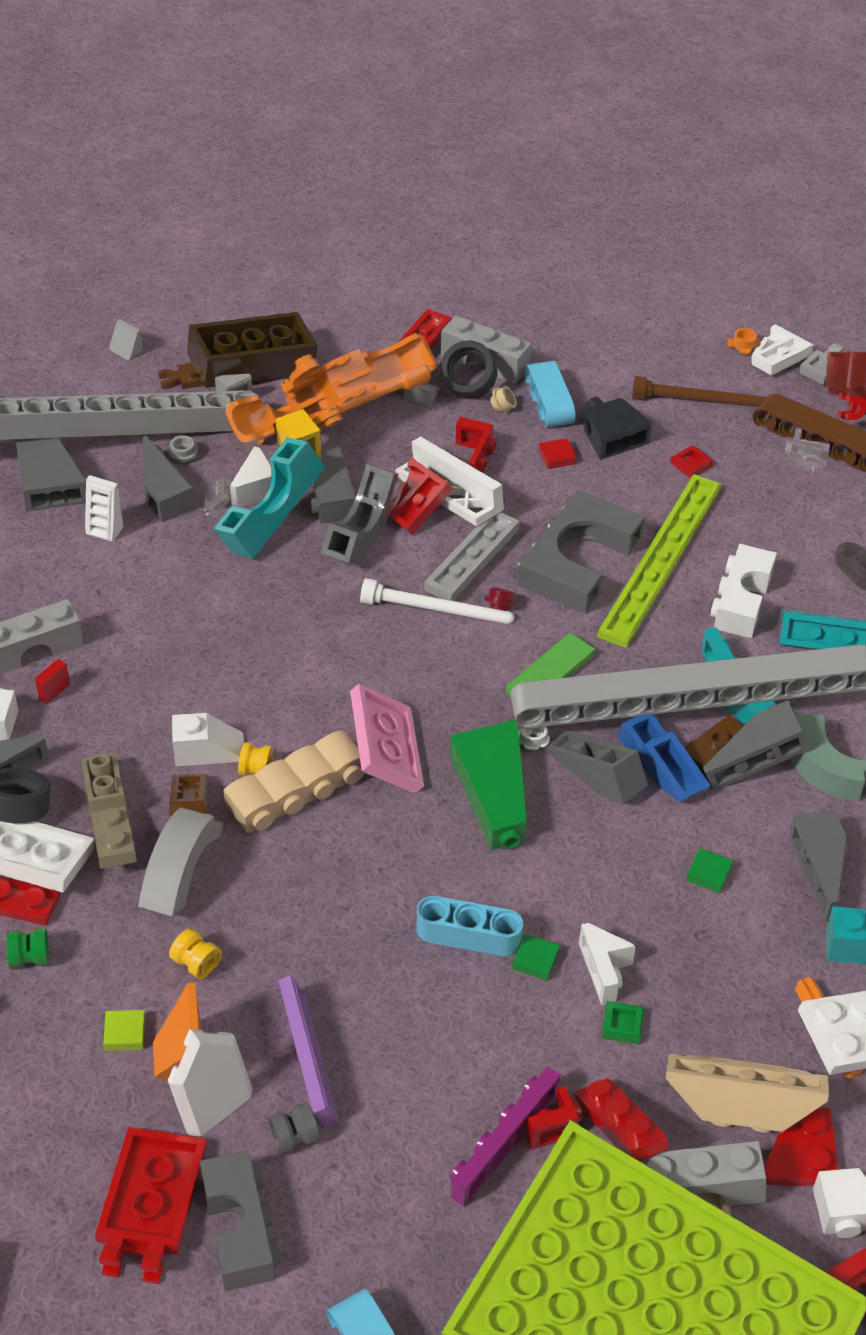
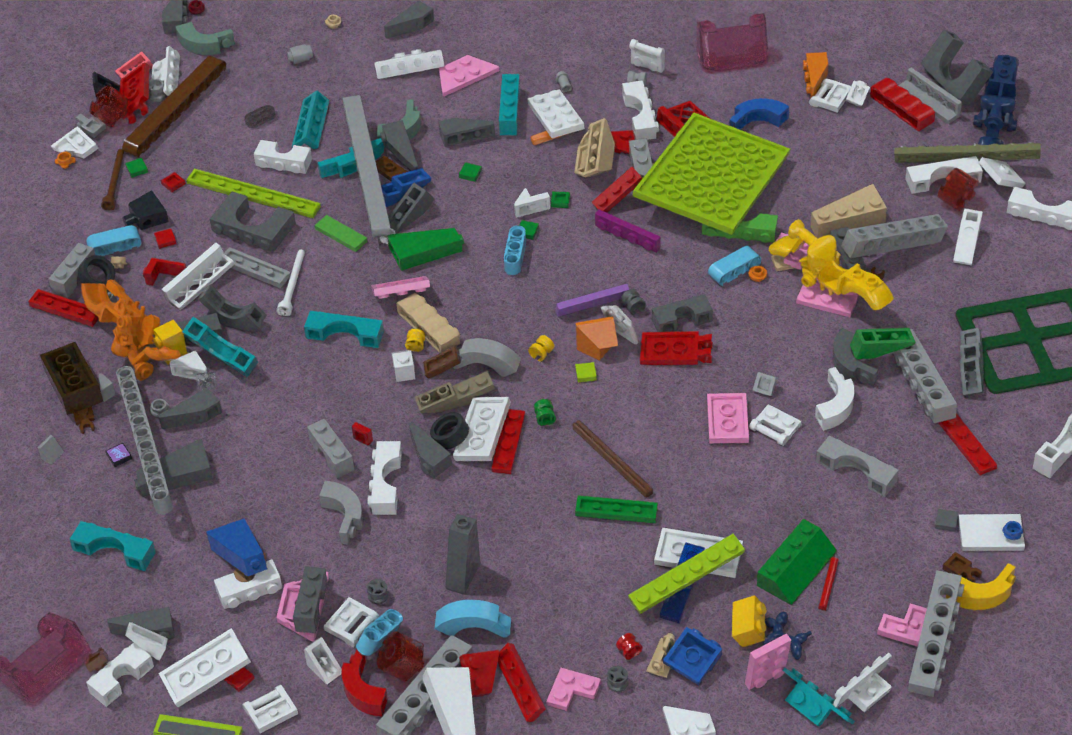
camera: 90 degrees left, 0 degrees up
(102, 513) = (225, 428): white slope -> none
(290, 693) = (322, 325): none -> teal arch
(418, 497) = (197, 287): red wing -> none
(500, 598) = (289, 253): dark red plate -> none
(548, 1124) = (618, 211): red bracket -> none
(727, 419) = (136, 167): none -> green tile
(806, 453) = (171, 135): clear bracket -> none

